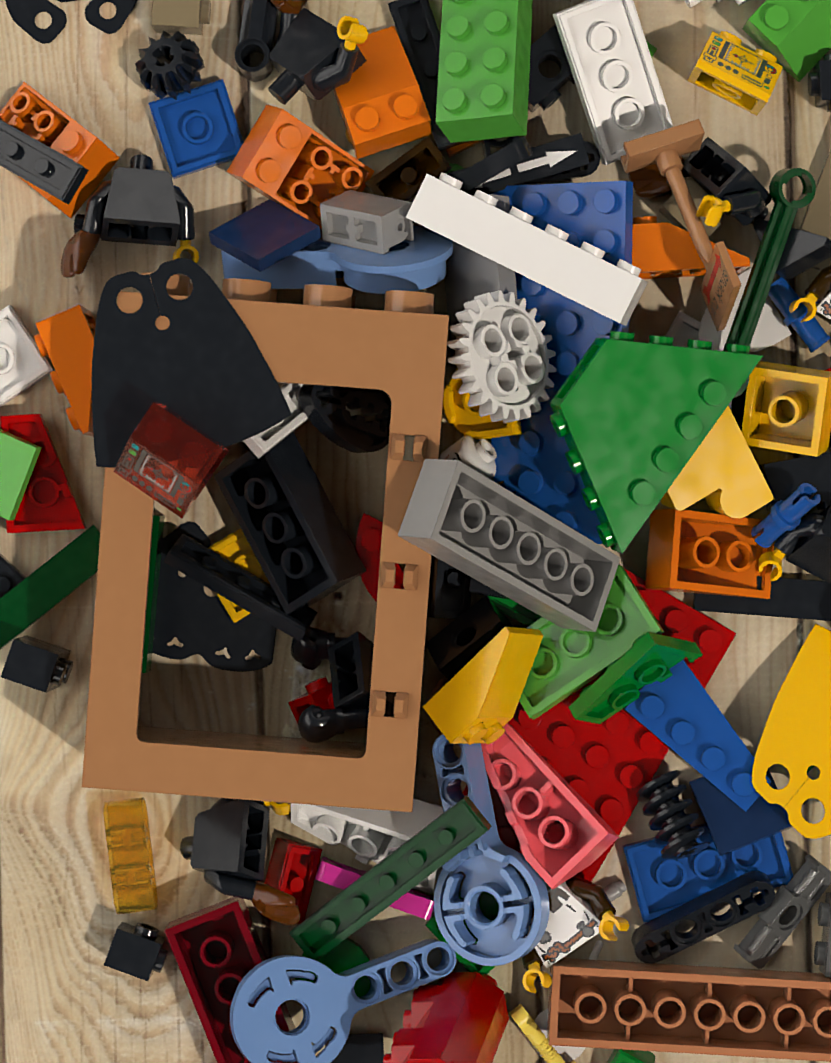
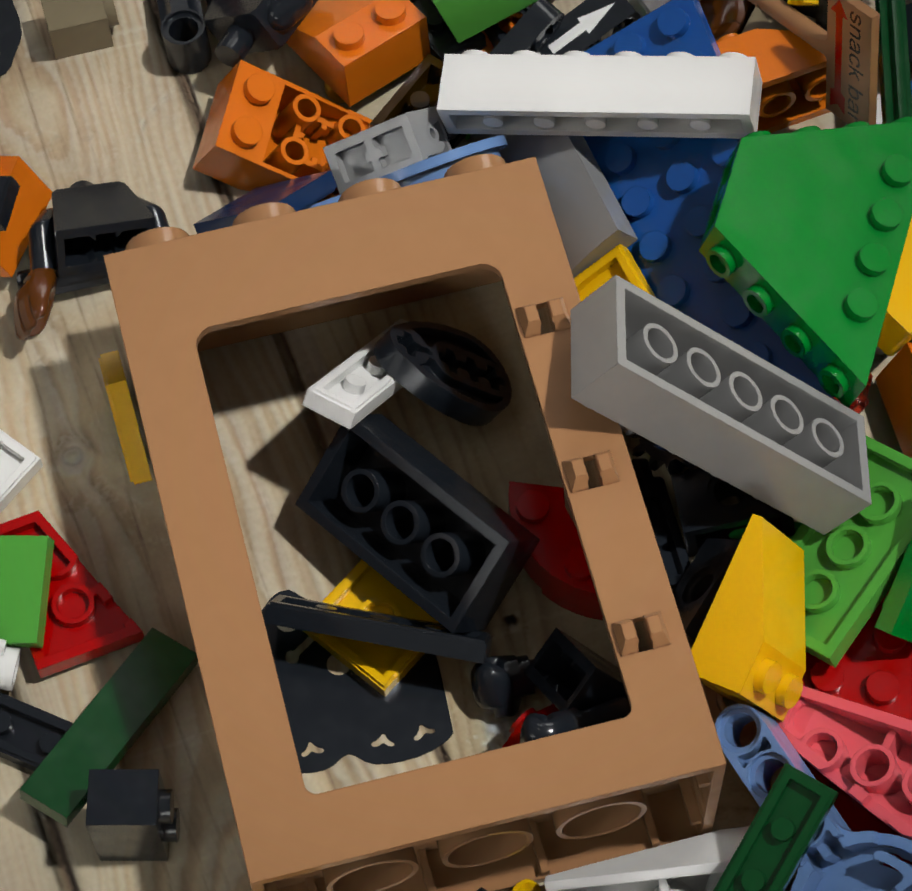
camera: 15 degrees left, 25 degrees down
(69, 345) = (61, 412): orange slope -> none
(169, 65) = (84, 73): black gear -> none
(169, 459) = (236, 411): clear red slope -> none
(197, 129) = (140, 138): blue tile -> none
(197, 367) = (222, 340): black piece -> none
(501, 356) = (617, 216): white gear -> none

